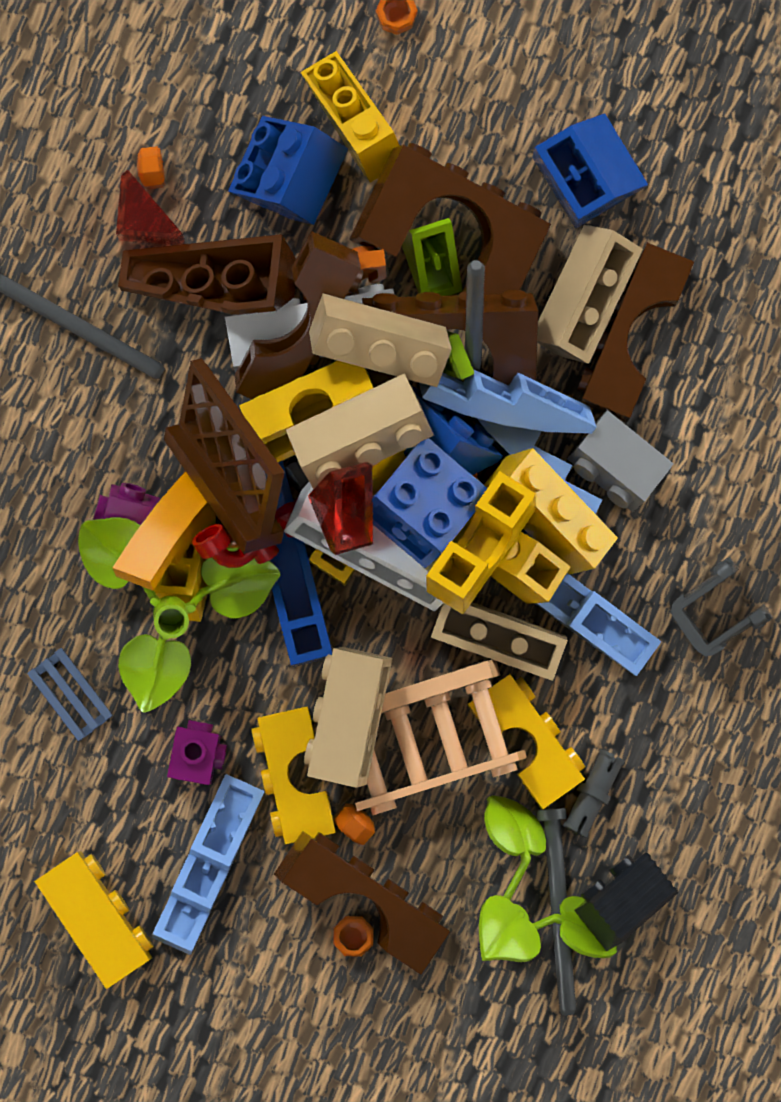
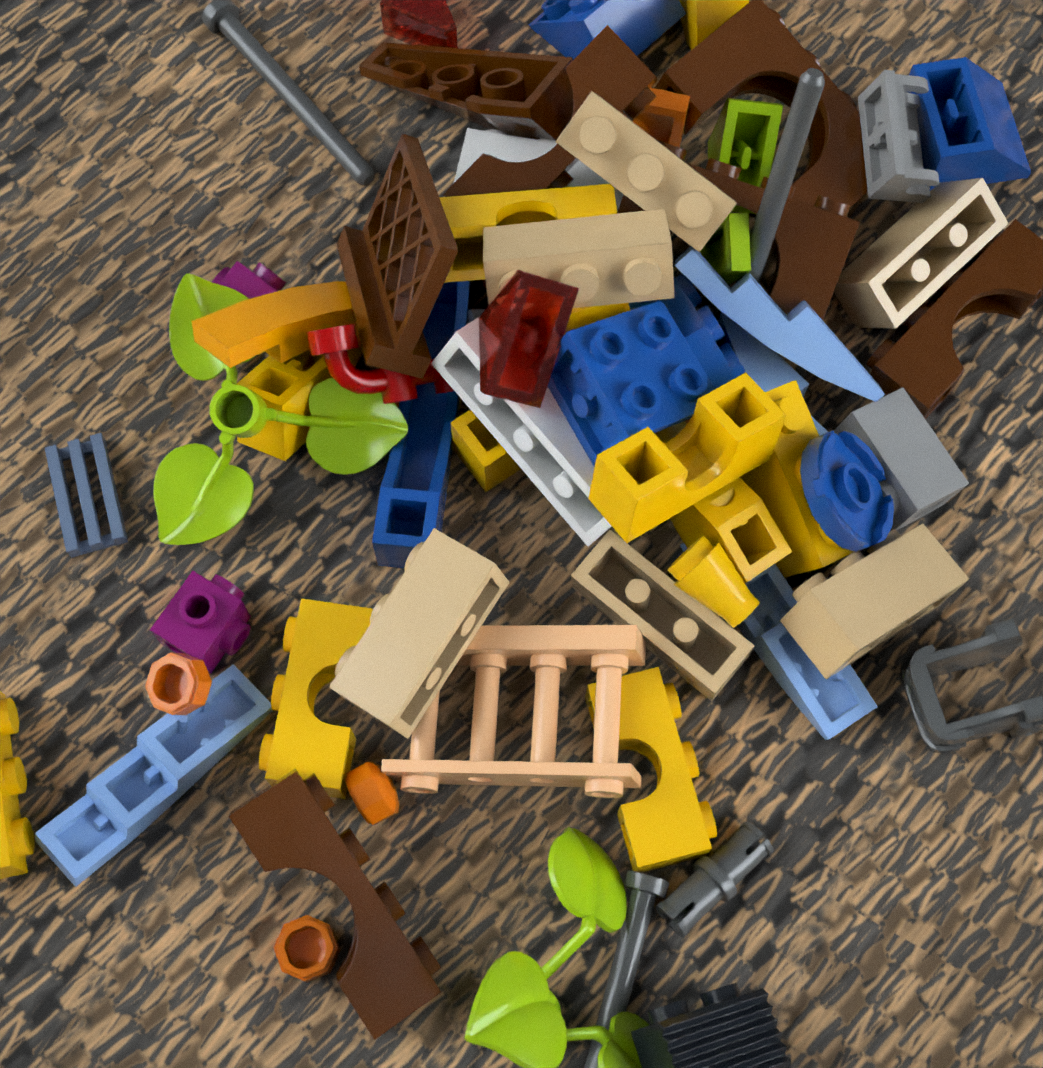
camera: 20 degrees right, 15 degrees down
(203, 805) = (178, 684): none -> orange tile
(524, 609) = (713, 581): none -> yellow cone
(541, 217) = (893, 139): none -> light grey hinge
(592, 512) = (844, 490): none -> blue tile
(634, 572) = (871, 598): none -> tan brick

